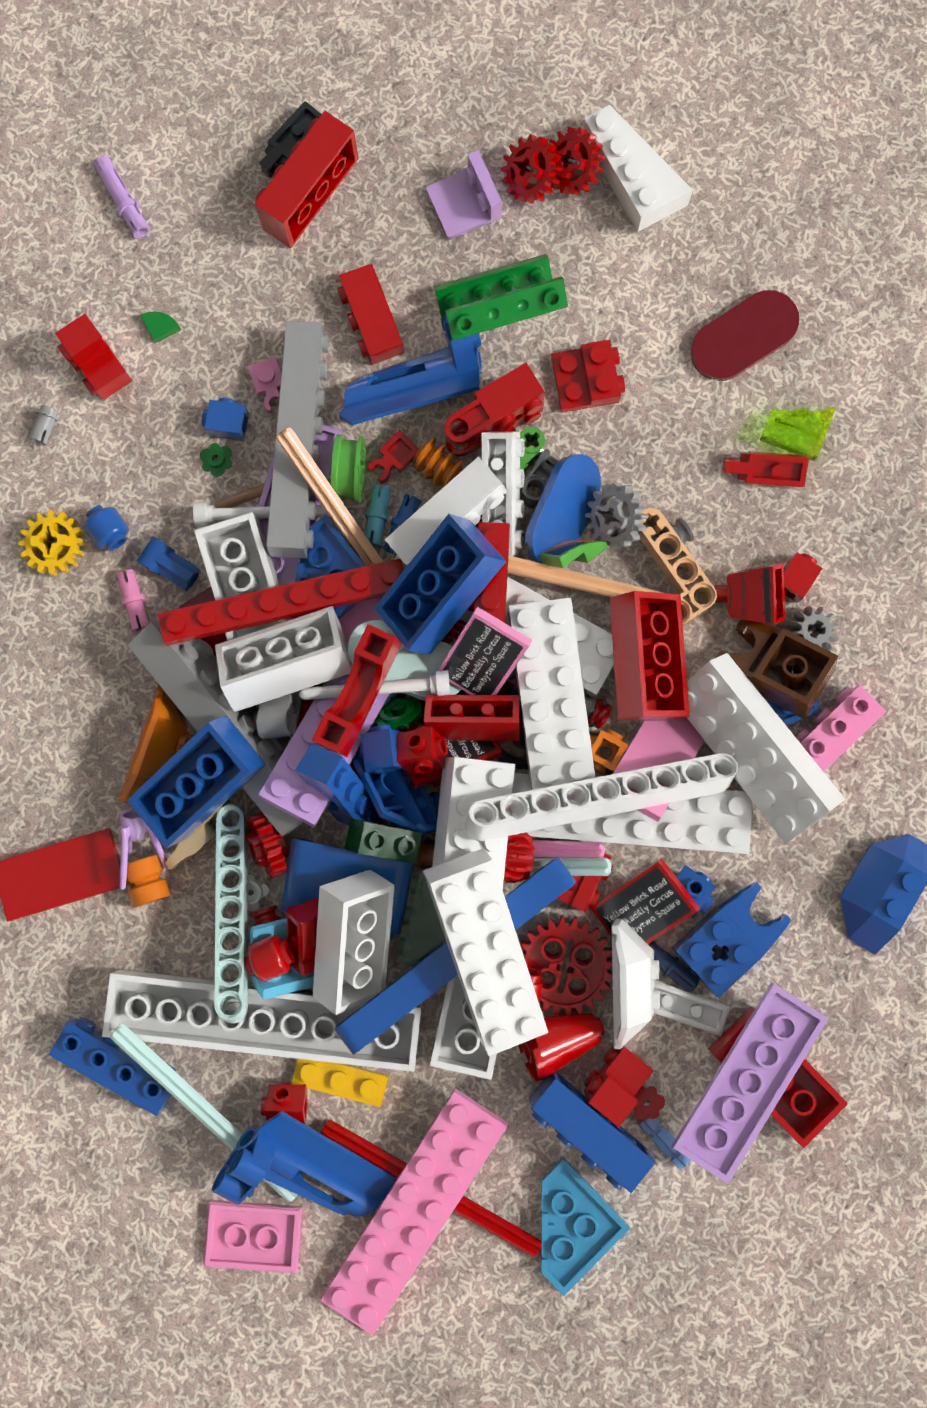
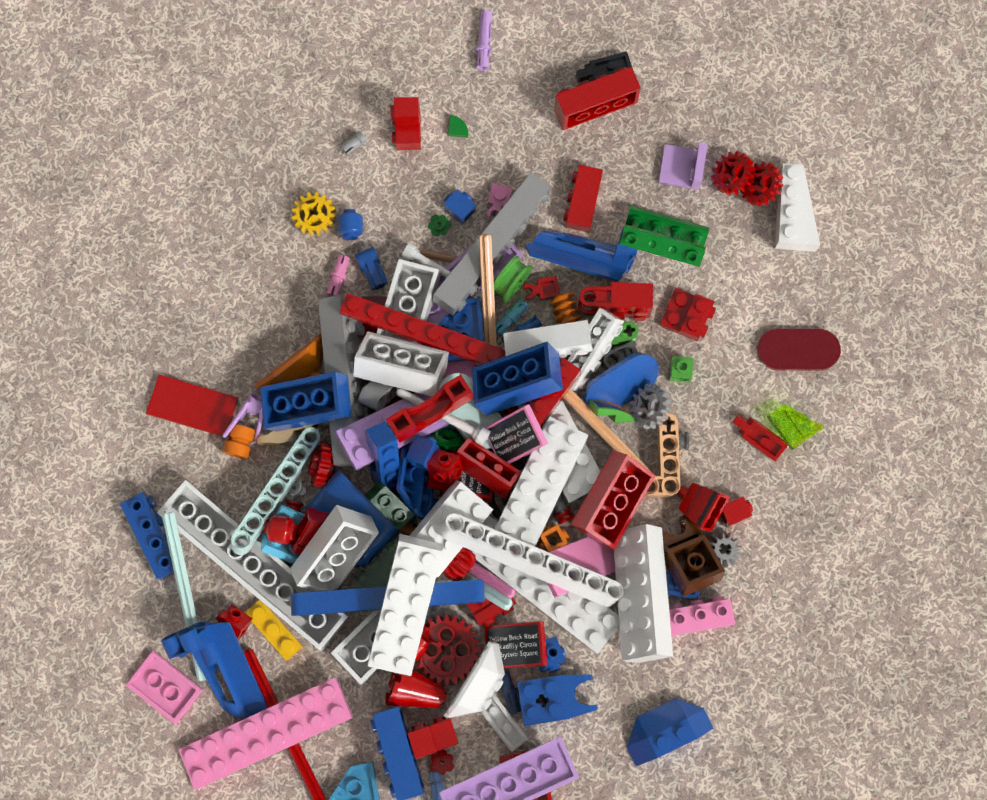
camera: 30 degrees right, 5 degrees down
(623, 447) = (681, 369): none -> bright green brick

